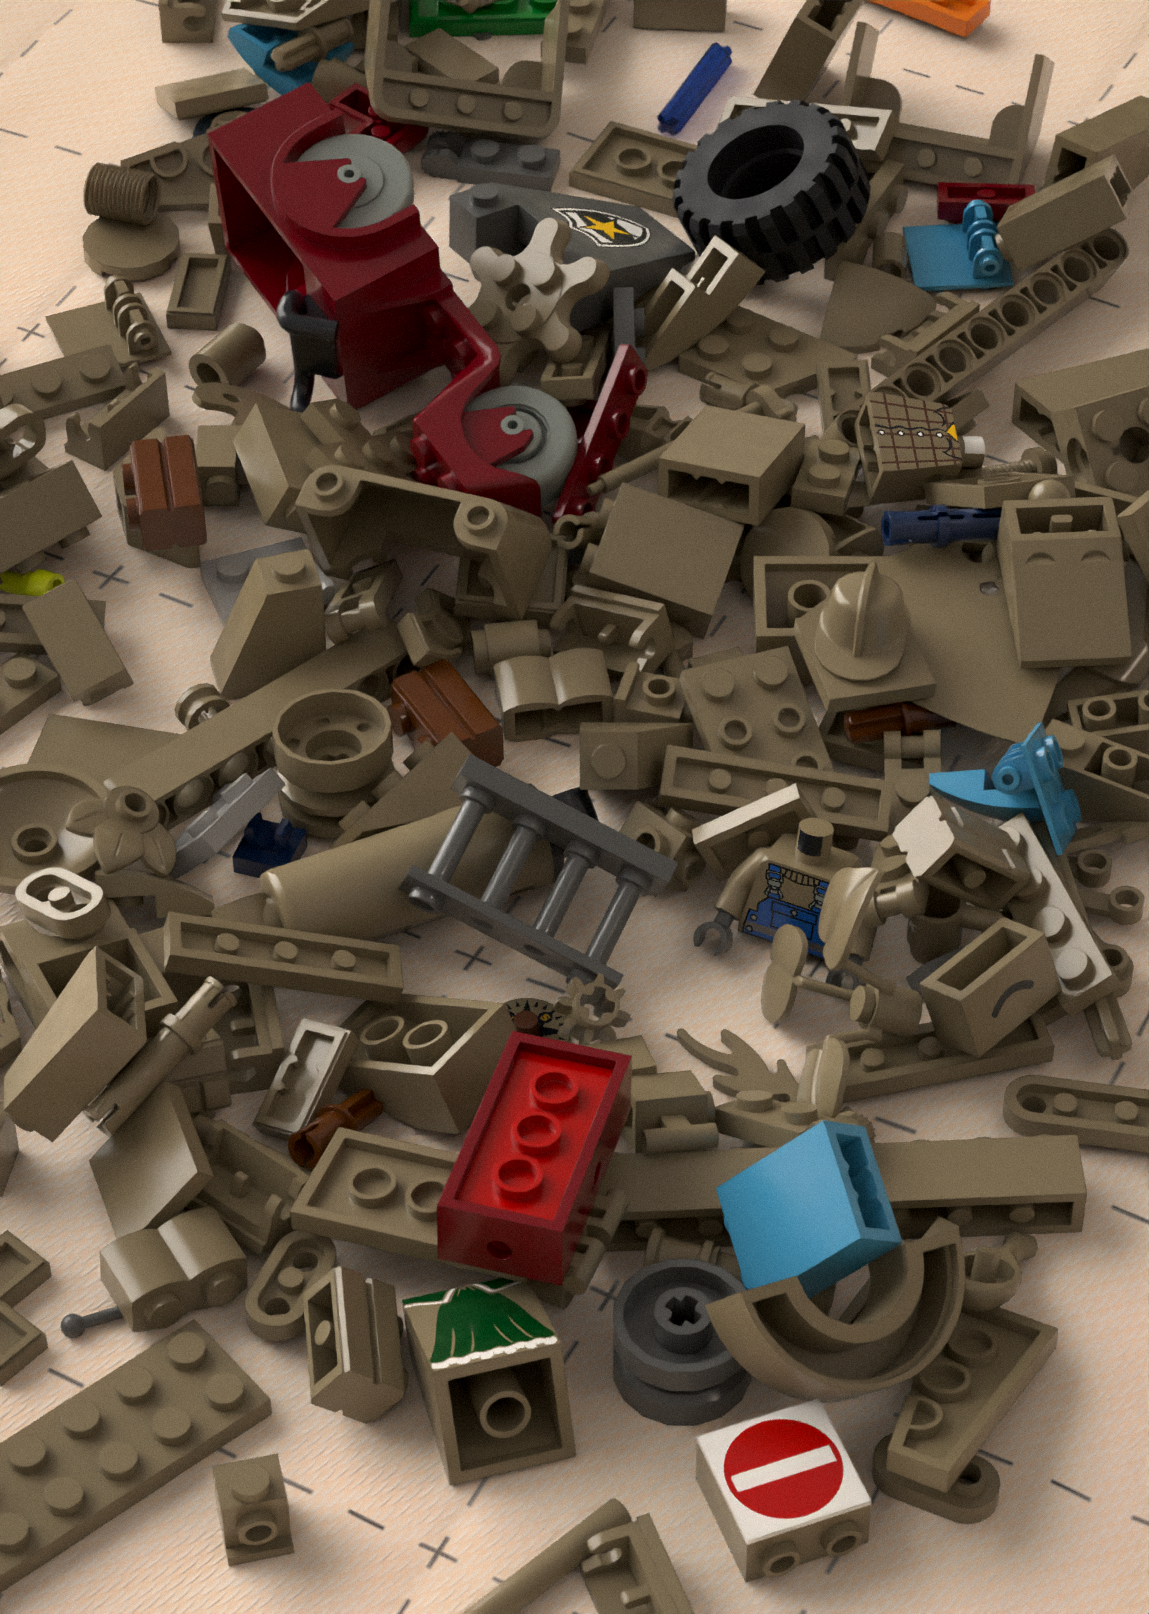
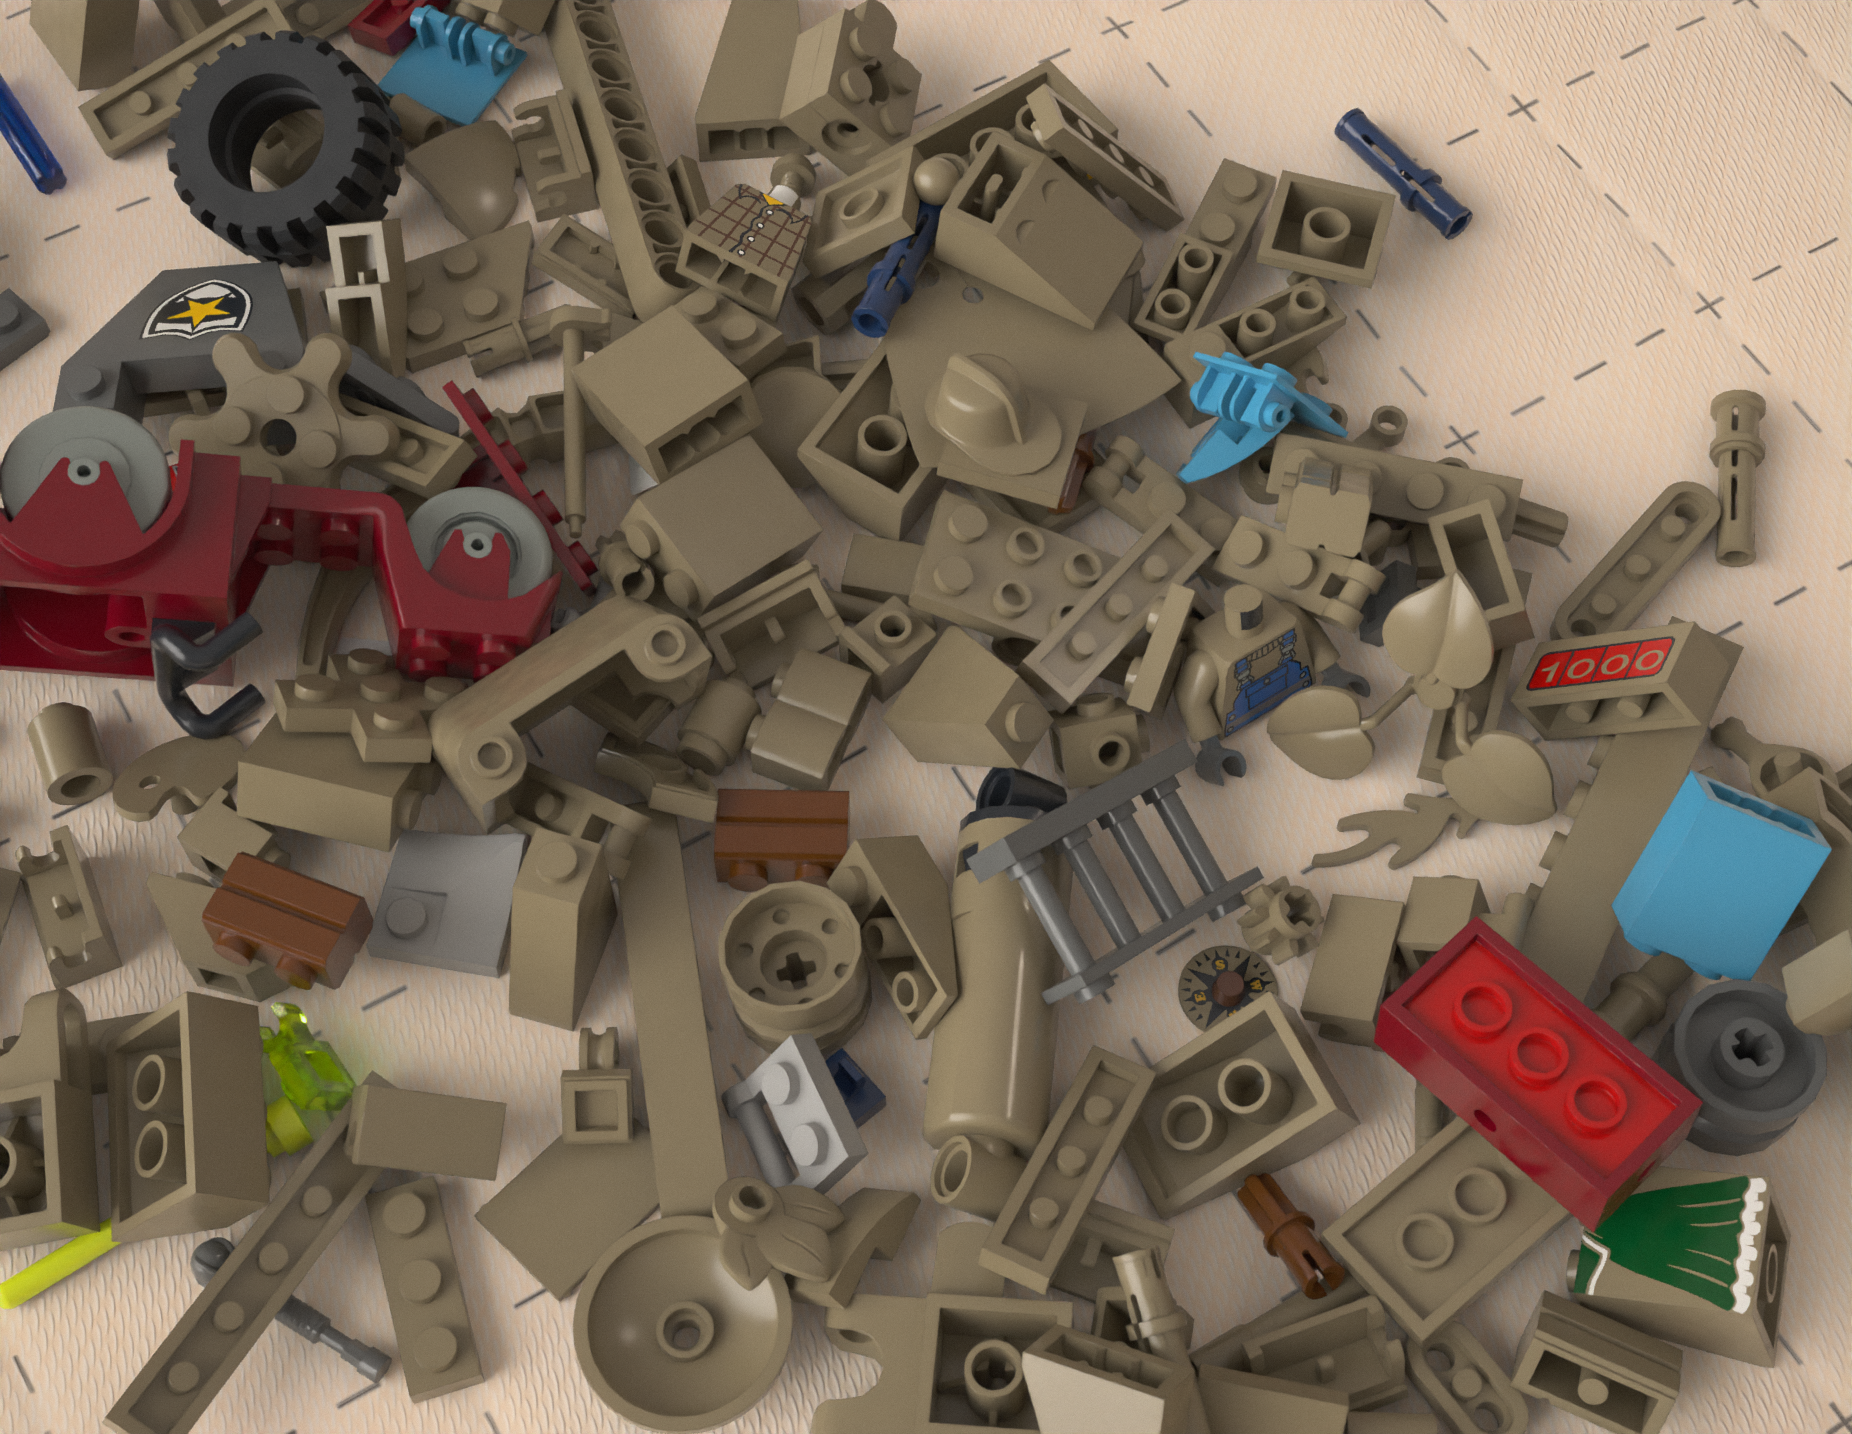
camera: 60 degrees left, 15 degrees up
(63, 903) = (853, 1347): dark tan plate -> none
(93, 567) = (308, 1067): none -> clear neon green plate
(162, 718) = (597, 1106): none -> dark tan tile
(305, 1078) = (1213, 1231): dark tan plate -> none
(632, 167) = (106, 232): dark tan tile -> none
(774, 1123) = (1538, 829): dark tan hinge -> none
(966, 1107) = (1621, 682): none -> dark tan brick

